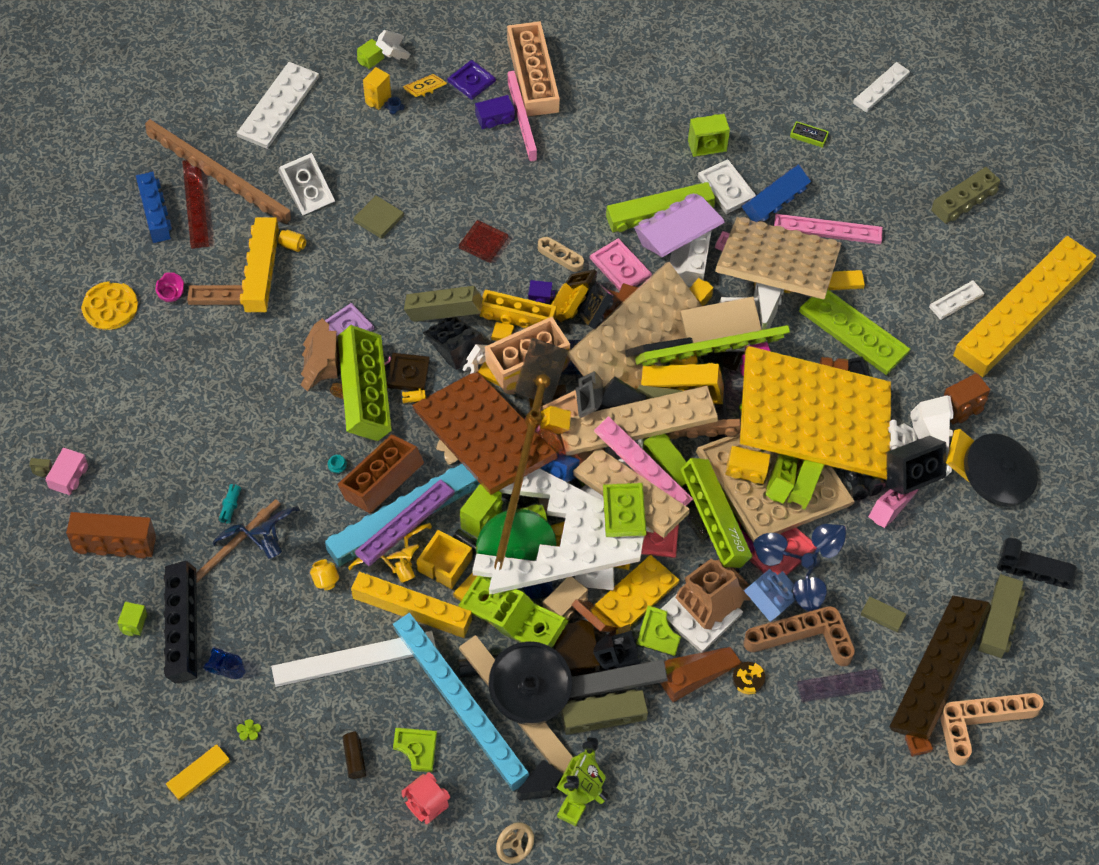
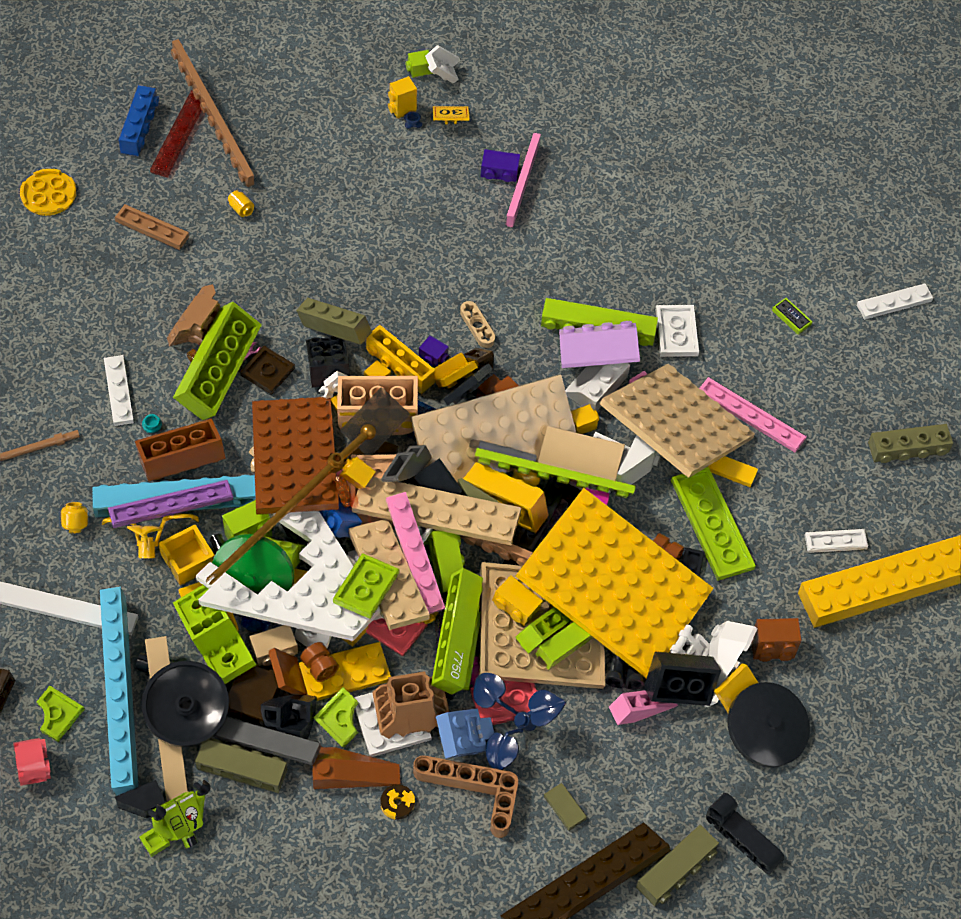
camera: 25 degrees right, 0 degrees up
(170, 287) = (106, 198): dark pink hair -> none
(229, 503) = (36, 415): teal pin -> none
(260, 264) = (196, 213): yellow brick -> none
(269, 543) = (44, 466): dark blue plant -> none
(277, 105) = (308, 75): white plate -> none
(288, 449) = (118, 390): none -> white plate
(306, 184) = (285, 158): white slope -> none
(348, 316) = (245, 297): lavender tile -> none
(378, 217) = (333, 216): olive tile -> none
(403, 600) = (133, 582): yellow brick -> none
(413, 396) = (258, 394): yellow pin -> none
(471, 79) = (499, 126): dark purple tile -> none
(483, 241) = (414, 281): clear red tile -> none
(511, 839) = (84, 832): tan piece -> none
(533, 68) = (560, 140): light nougat brick -> none
(618, 594) = (318, 659): none -> dark orange wheel
(620, 265) = (526, 358): bright pink tile -> none
(708, 135) = (687, 273): lime brick -> none
(776, 193) = (718, 358): blue brick -> none
(839, 685) = (478, 852): clear purple tile -> none

